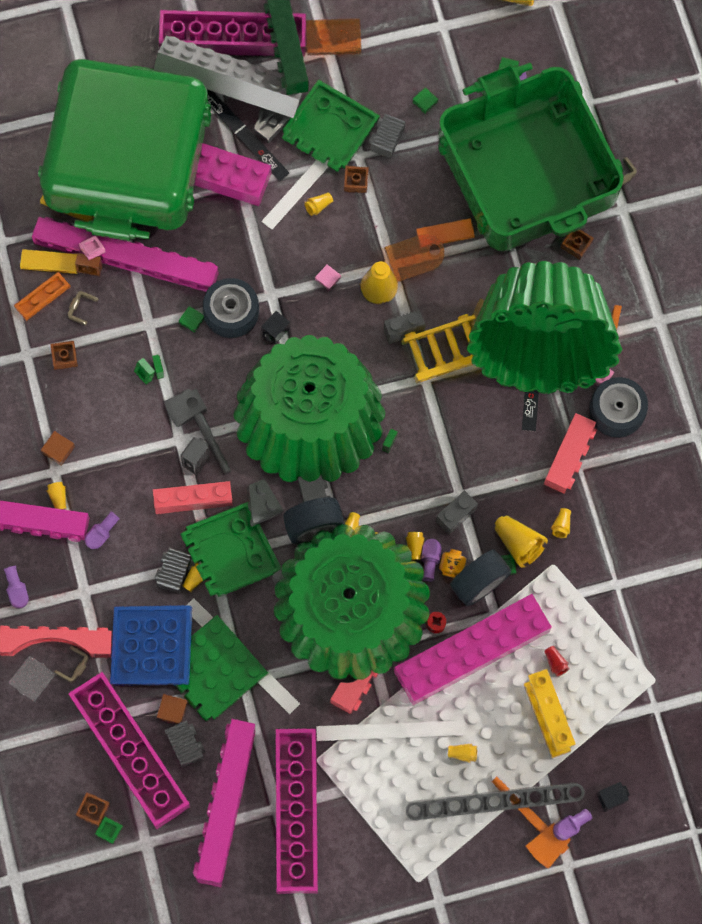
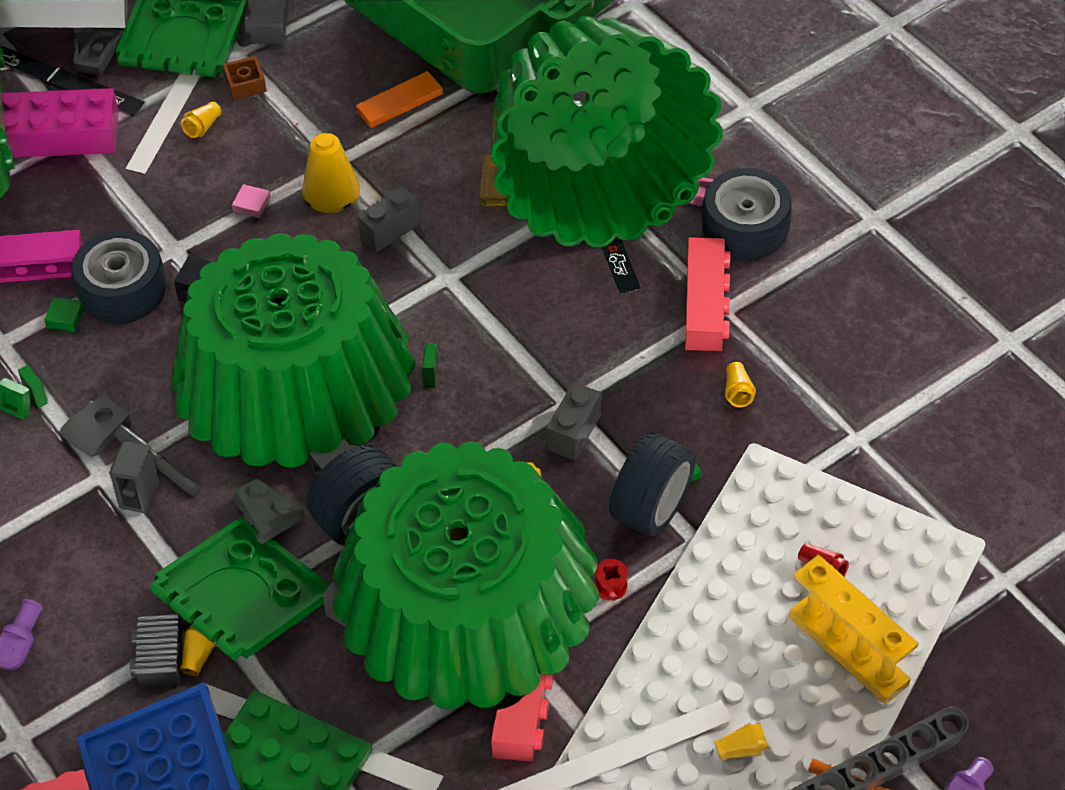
camera: 15 degrees left, 20 degrees down
(192, 497) = (151, 538): coral brick -> none
(413, 256) = (368, 136): clear orange tile -> none
(430, 557) = (563, 485): medium lavender arm -> none
(440, 367) = (467, 251): yellow fence -> none
(452, 563) = (596, 489): light orange head -> none
(472, 649) = (684, 591): dark pink brick -> none
(521, 541) = (688, 420): yellow cone -> none
(613, 796) = (1009, 723): black brick -> none

